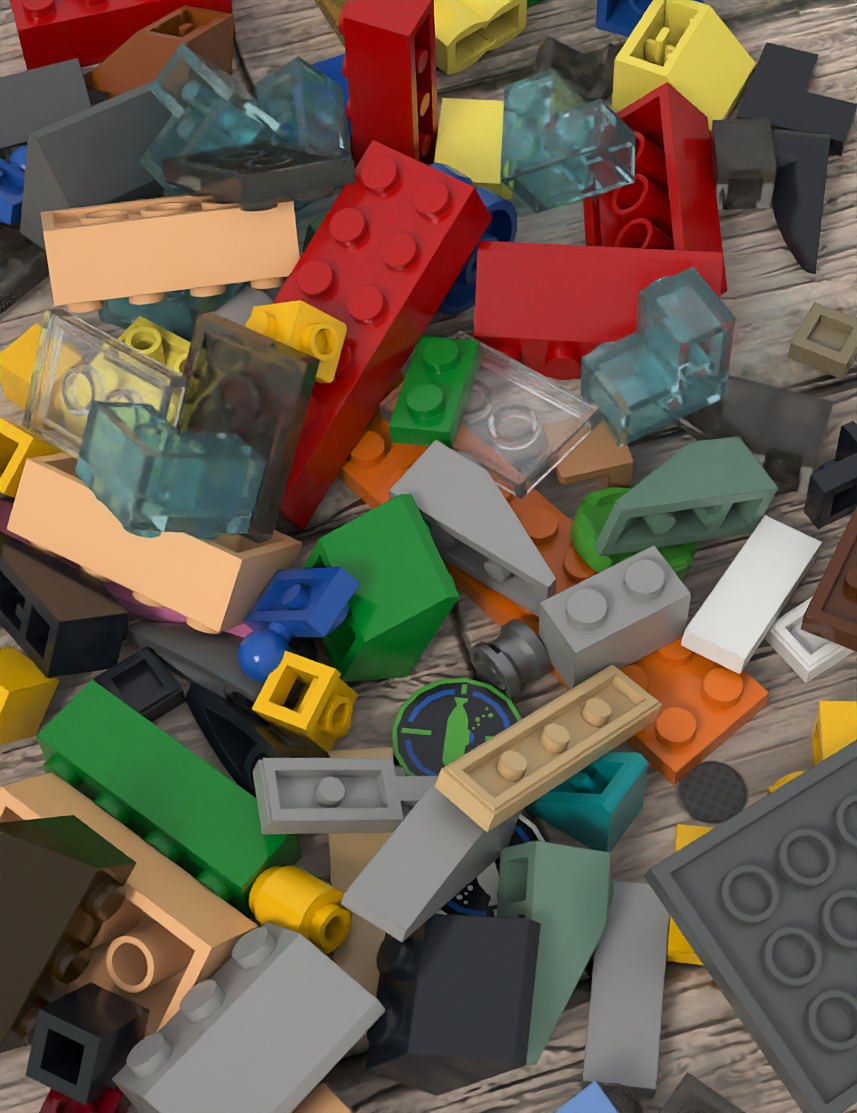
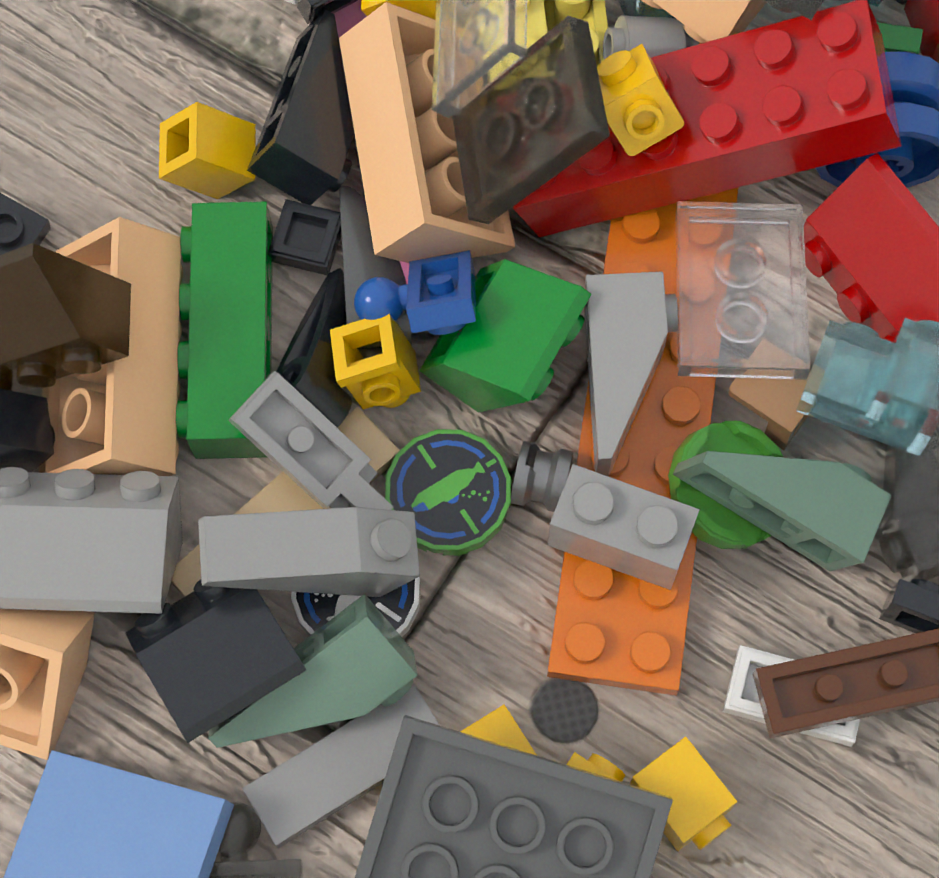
camera: 50 degrees right, 15 degrees up
(166, 476) = (432, 117): clear light blue brick -> none
(301, 904) = (208, 486): yellow brick -> none
(435, 391) = (718, 234): green plate -> none
(547, 747) = (457, 565): tan tile -> none
(597, 800) = (473, 620): teal slope -> none
(751, 594) = (756, 612): white tile -> none

